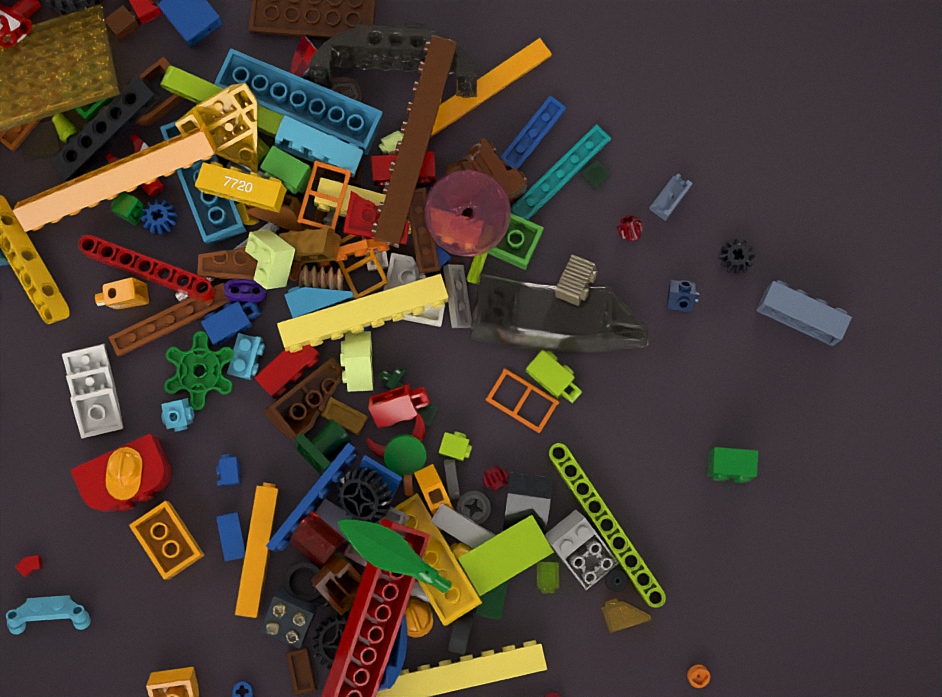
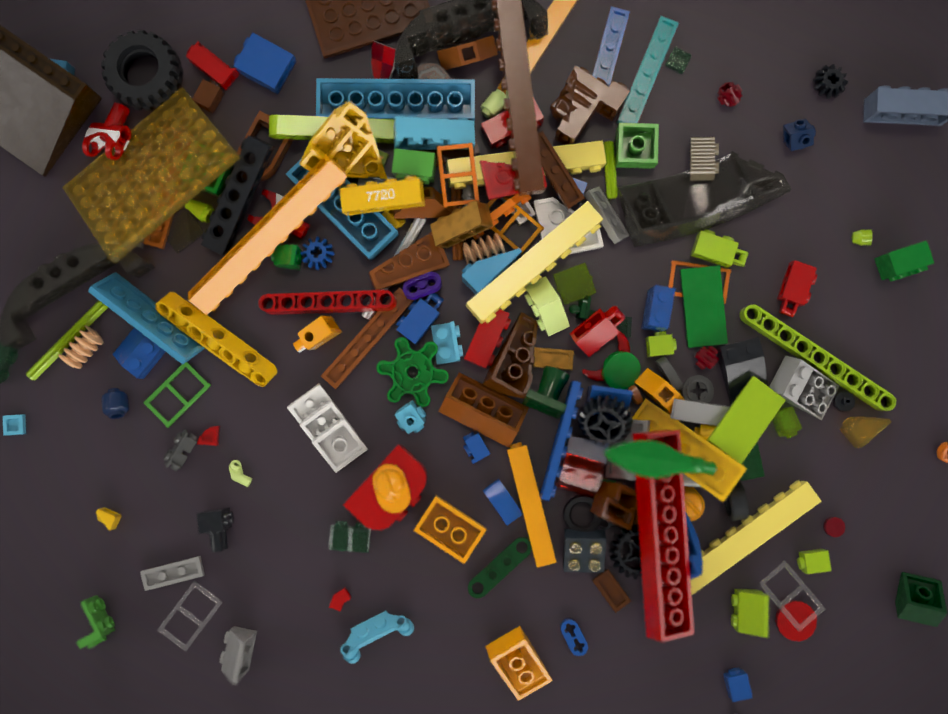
camera: 25 degrees left, 5 degrees up
(66, 507) = (350, 538): none -> clear green brick
(199, 601) = (499, 567): none -> dark green plate
(252, 437) = (483, 410): none -> dark orange slope
(273, 258) = (437, 246): yellowish green brick -> none
(387, 82) = (467, 52): none -> dark orange slope
(398, 351) = (574, 283): none -> clear neon green piece
(465, 408) = (658, 308): none -> blue brick
(488, 219) = (572, 130): clear pink piece -> none
(515, 426) = (703, 306): none -> green tile
(615, 445) = (796, 287): none -> red brick
(670, 196) = (752, 52): sand blue hinge -> none
(704, 424) = (862, 237): none -> lime hose

